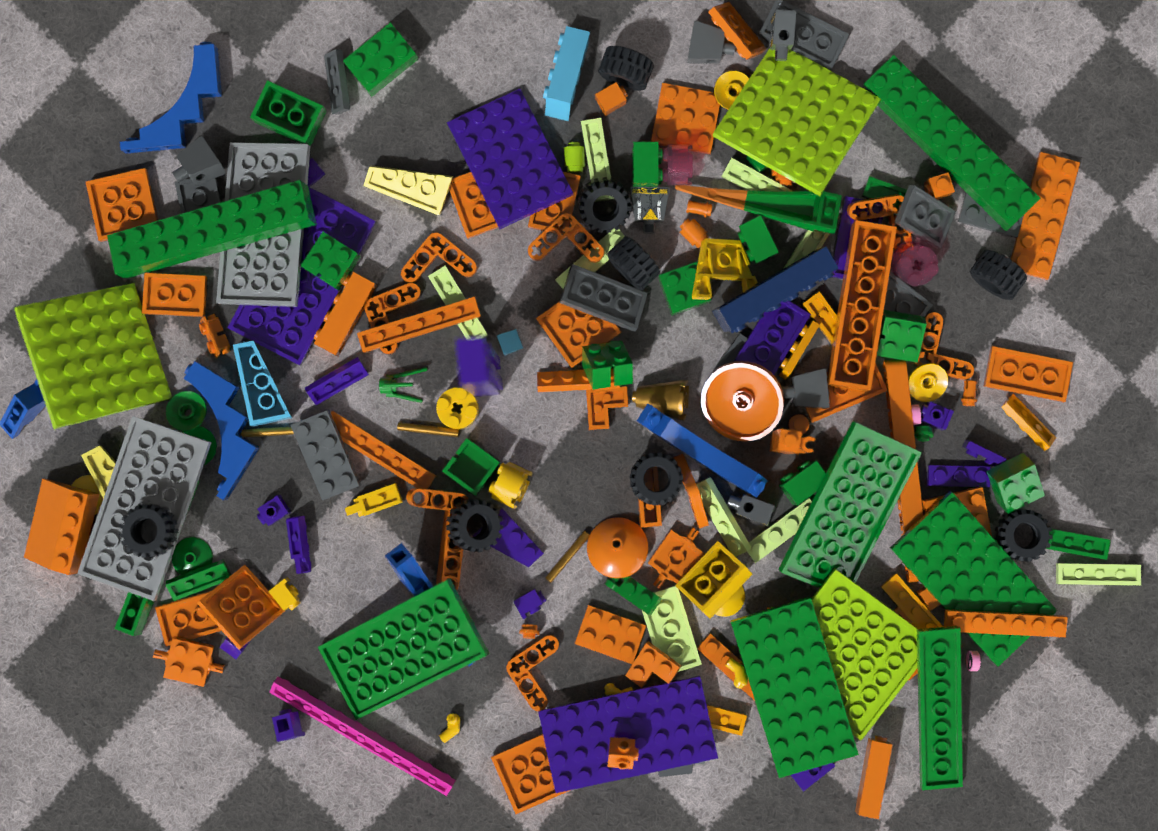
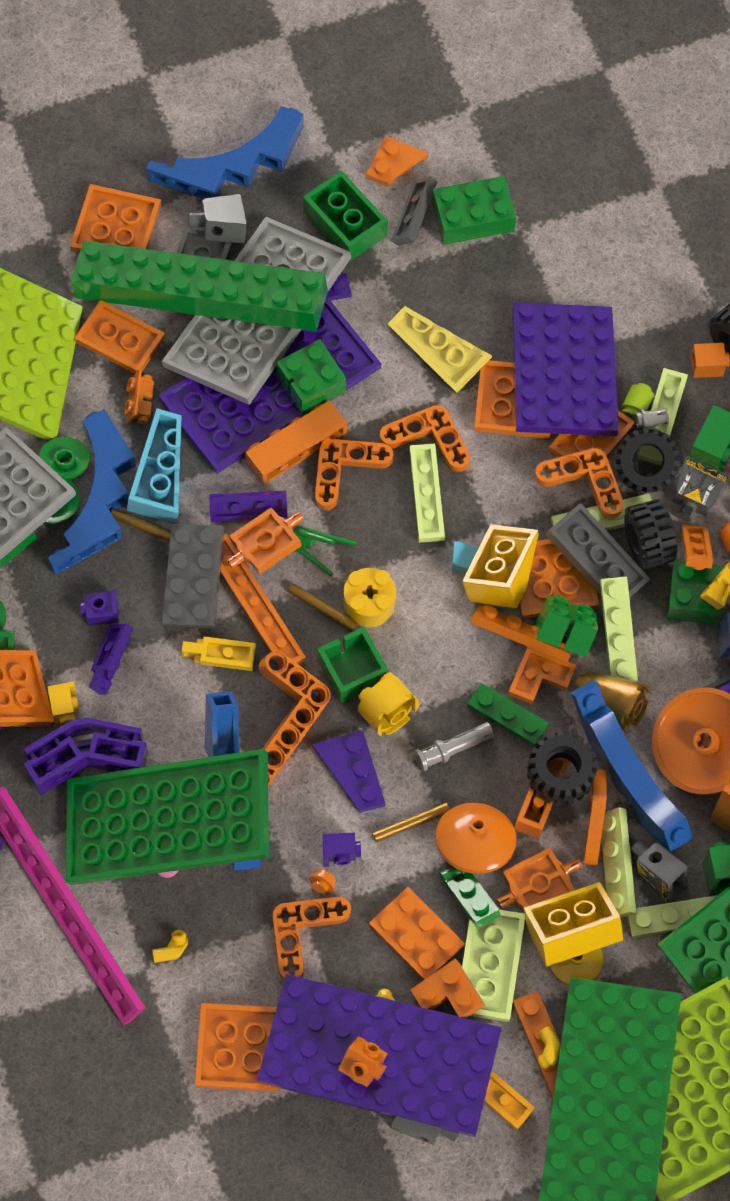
camera: 20 degrees right, 20 degrees down
(300, 45) = (393, 161): none -> orange wing
(317, 626) = (59, 757): none -> dark purple brick
(363, 404) = (265, 540): none -> orange plate
(419, 324) = (373, 487): orange plate -> none
(478, 367) = (425, 526): dark purple brick -> none
(490, 527) = (341, 714): black tyre -> none
(539, 339) = (501, 566): none -> yellow slope
(564, 495) = (444, 749): none -> light grey pin
(566, 73) = (670, 313): medium azure wedge -> none
(591, 168) = (651, 418): none -> light grey pin
(595, 445) = (507, 714): none -> green plate
(644, 346) = (618, 628): none -> yellowish green plate
(670, 255) = (696, 546): none -> orange plate

